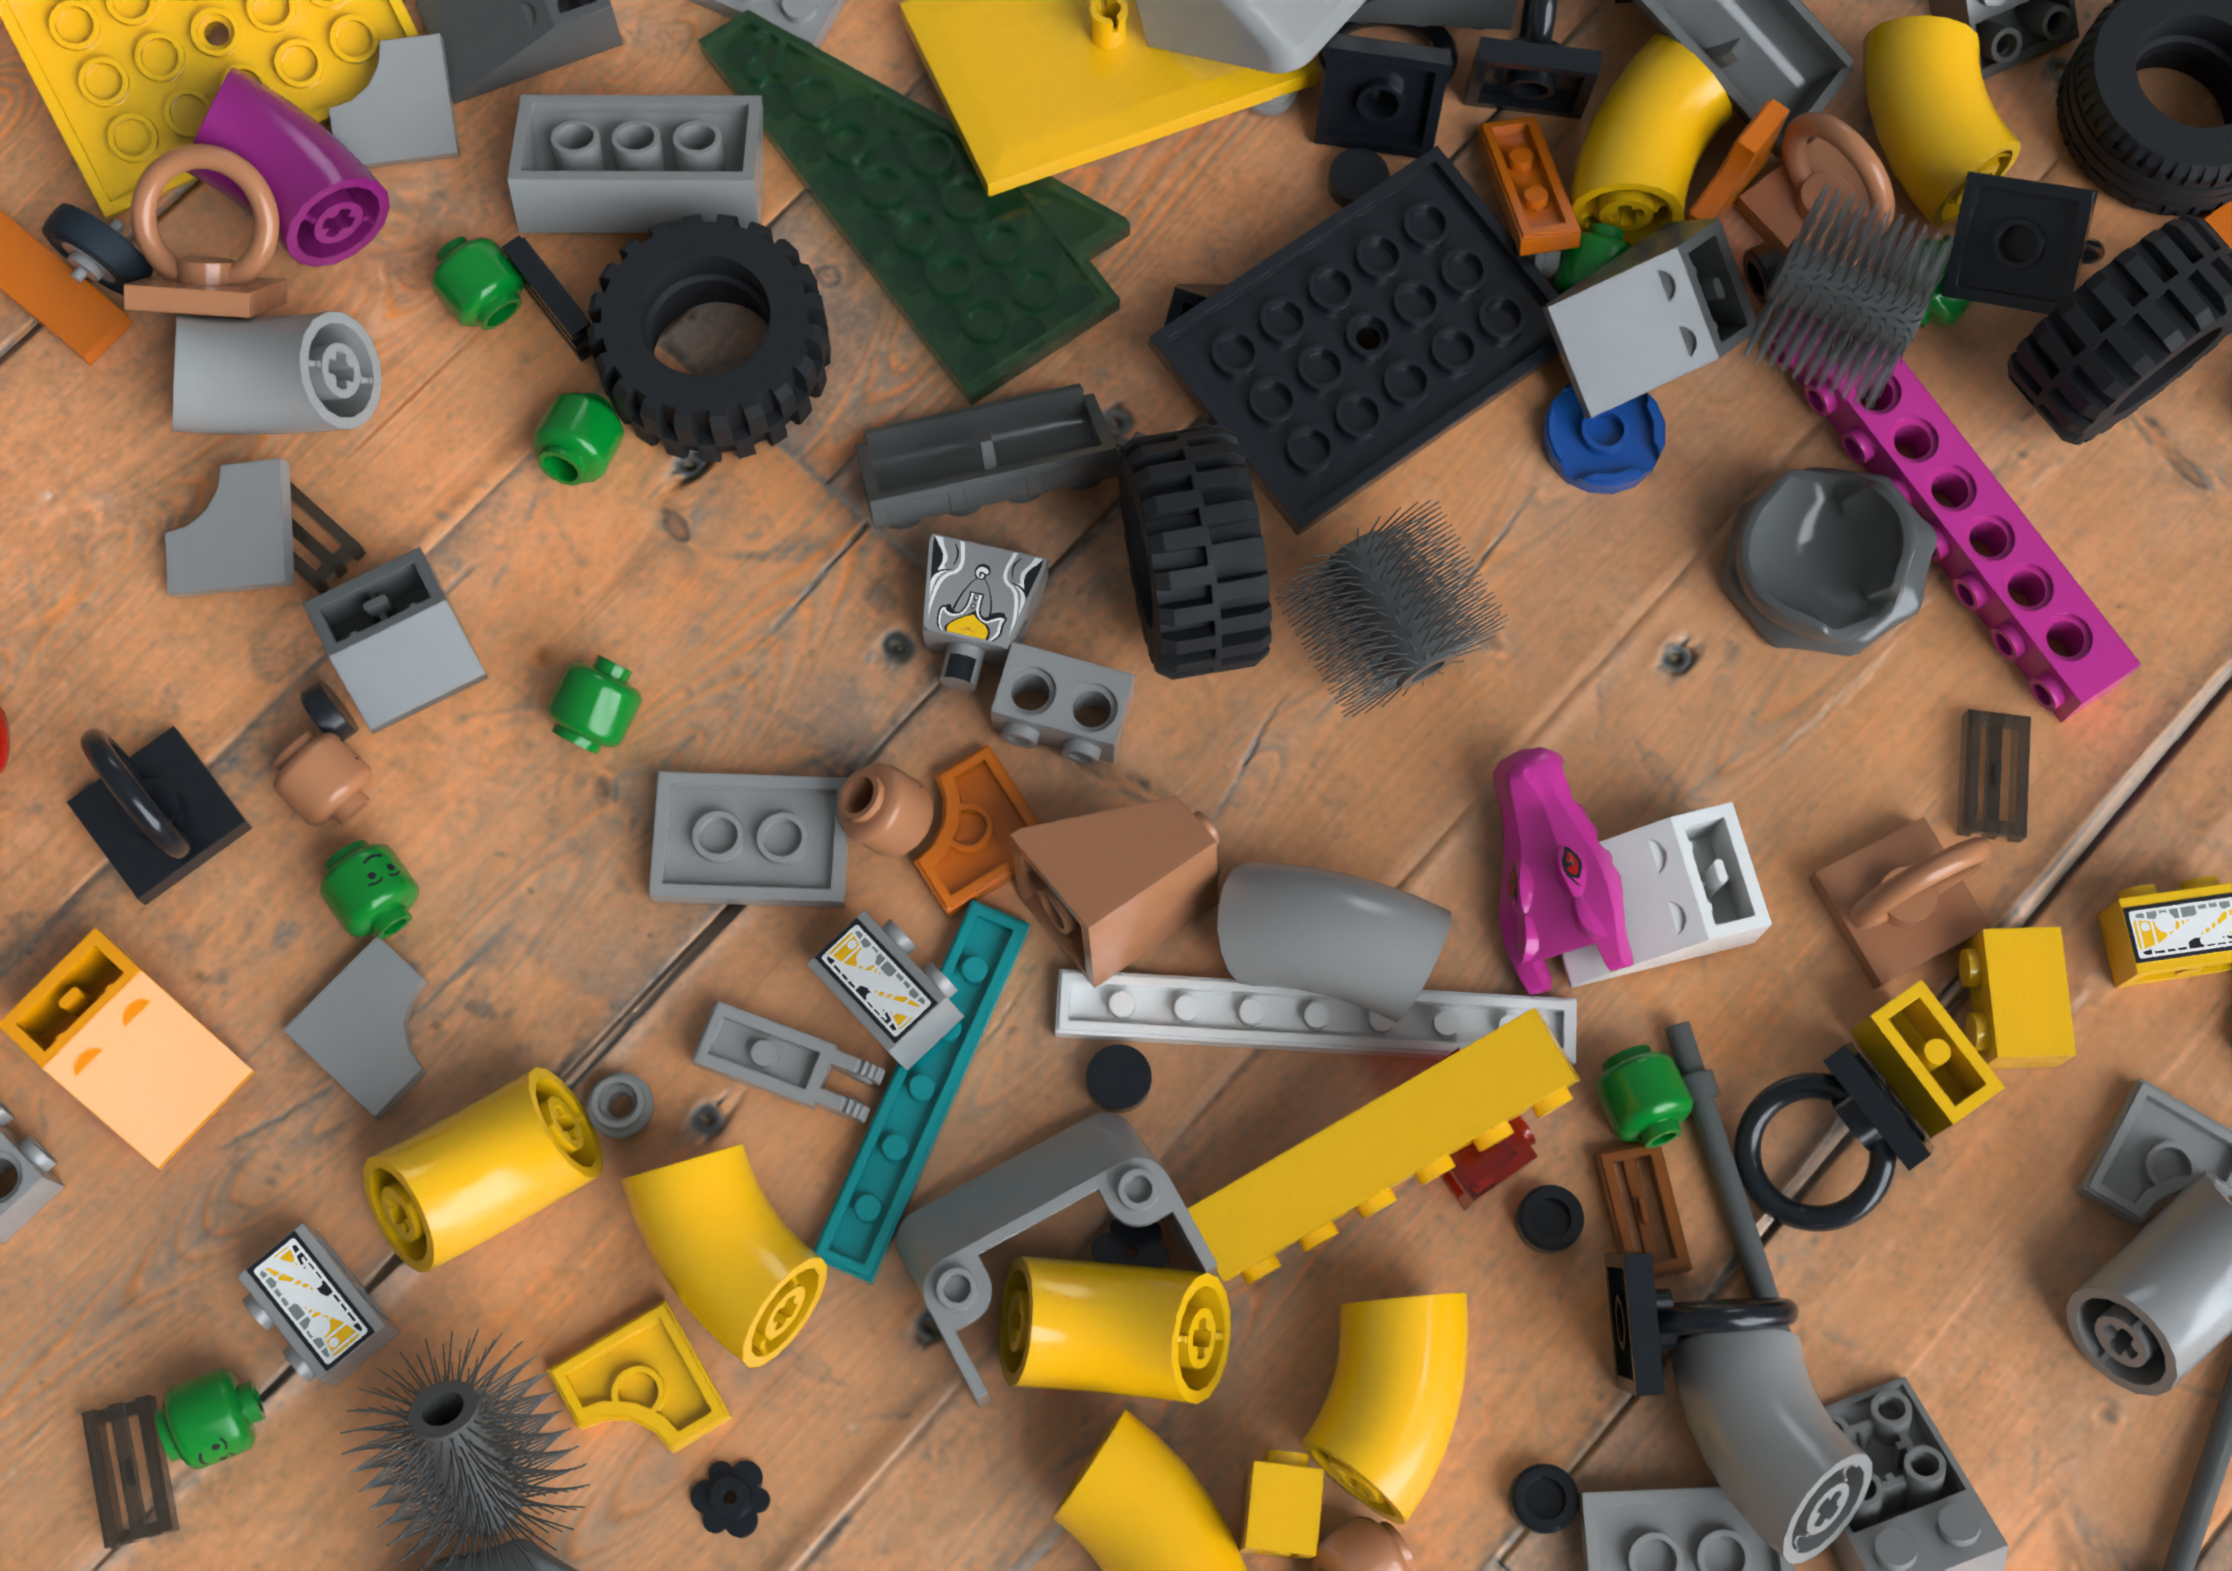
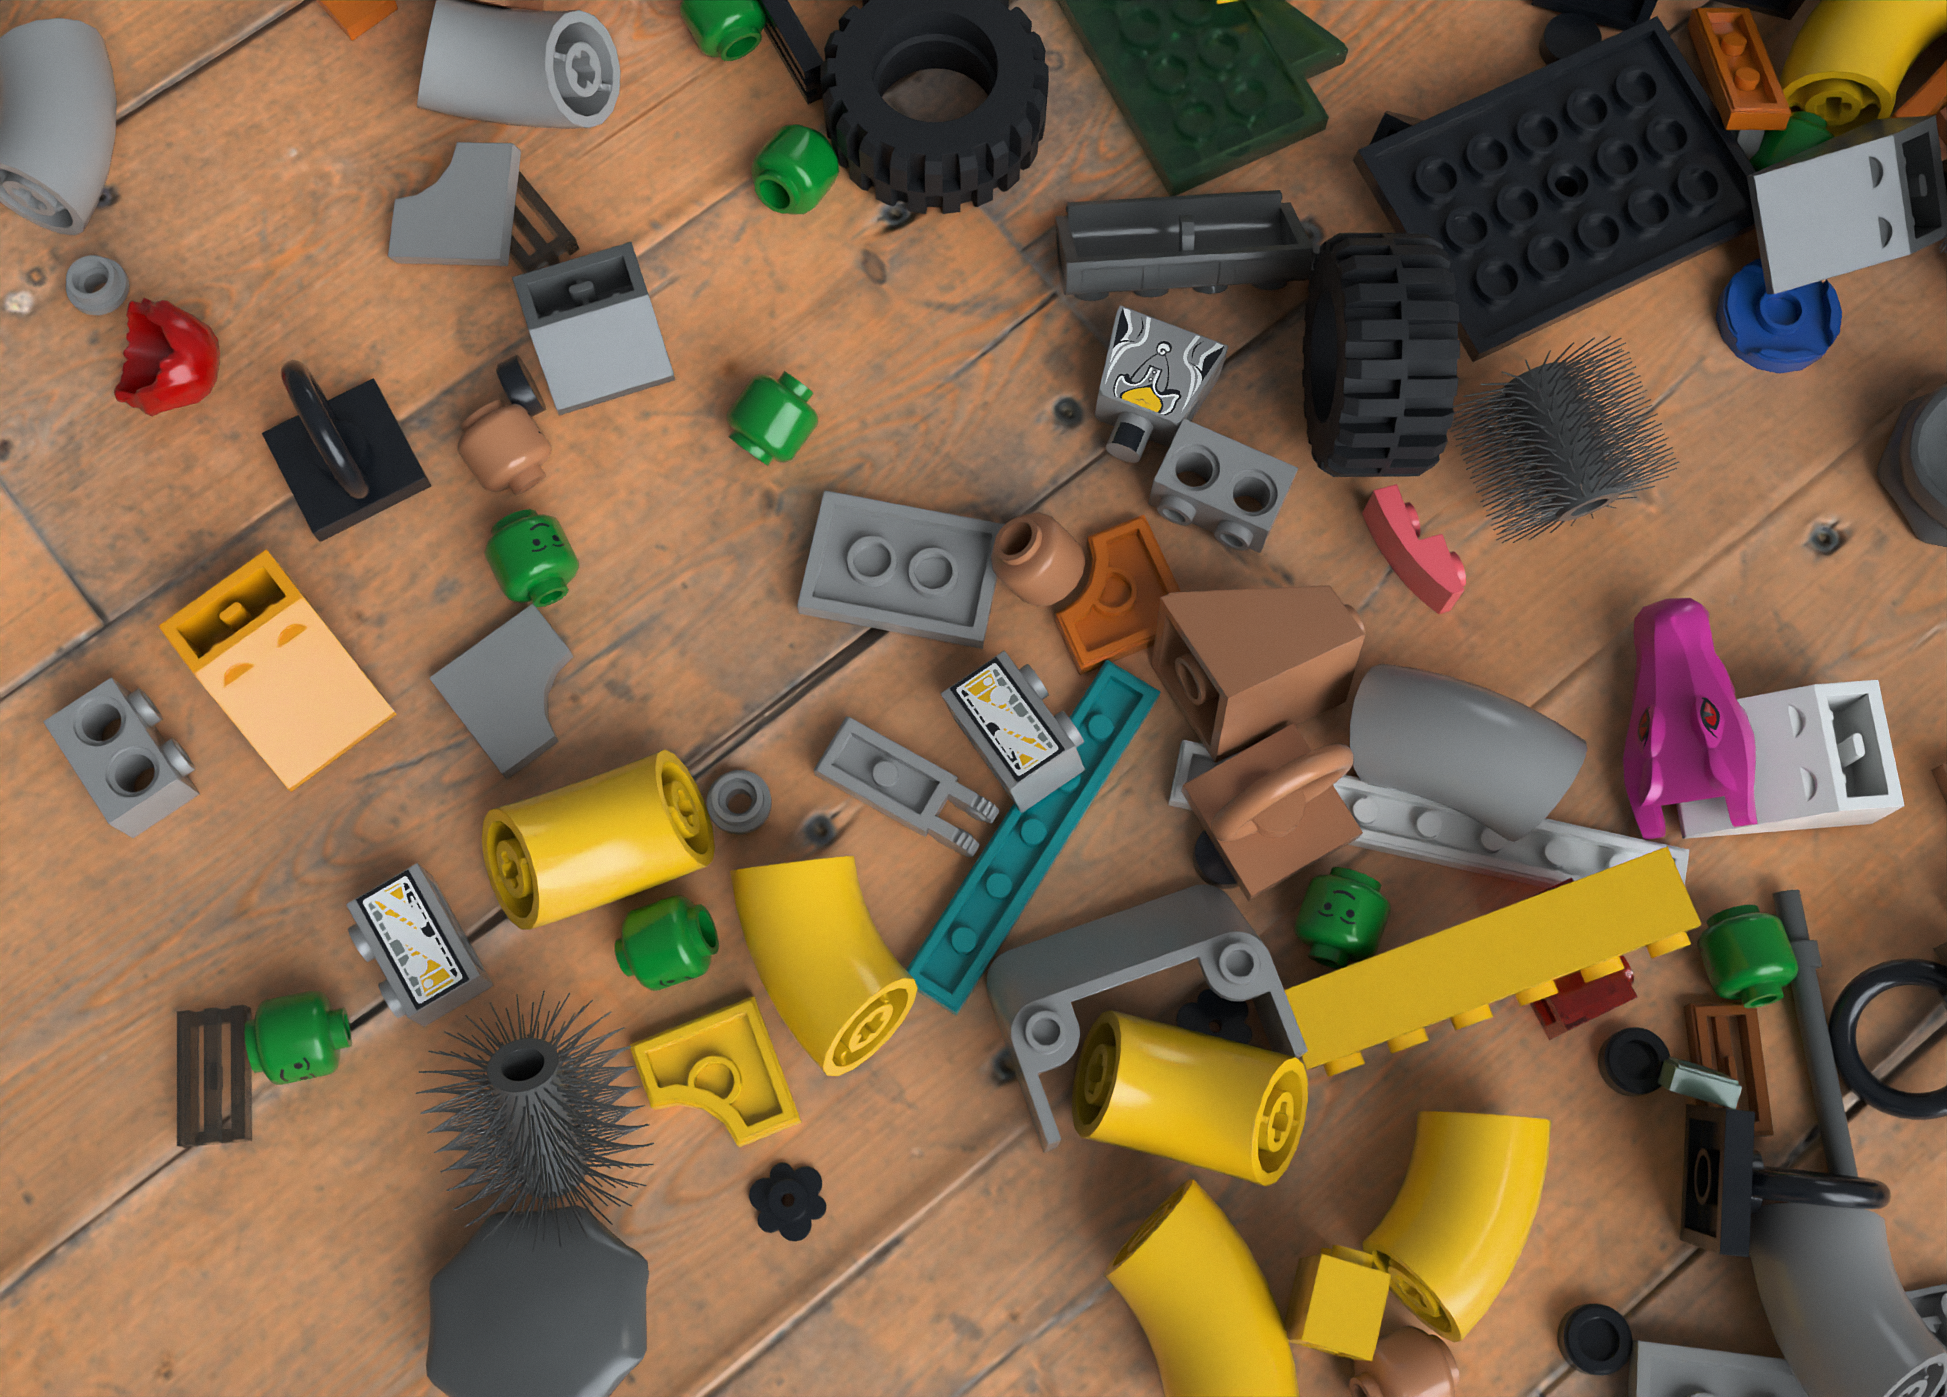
camera: 10 degrees right, 0 degrees up
(569, 1260) = (667, 942): none -> green head
(1158, 1026) = (1274, 808): none -> nougat tile
(1240, 1124) = (1342, 917): none -> green head
(1275, 751) = (1421, 564): none -> coral slope
(1608, 1230) = (1699, 1082): none -> sand green tile

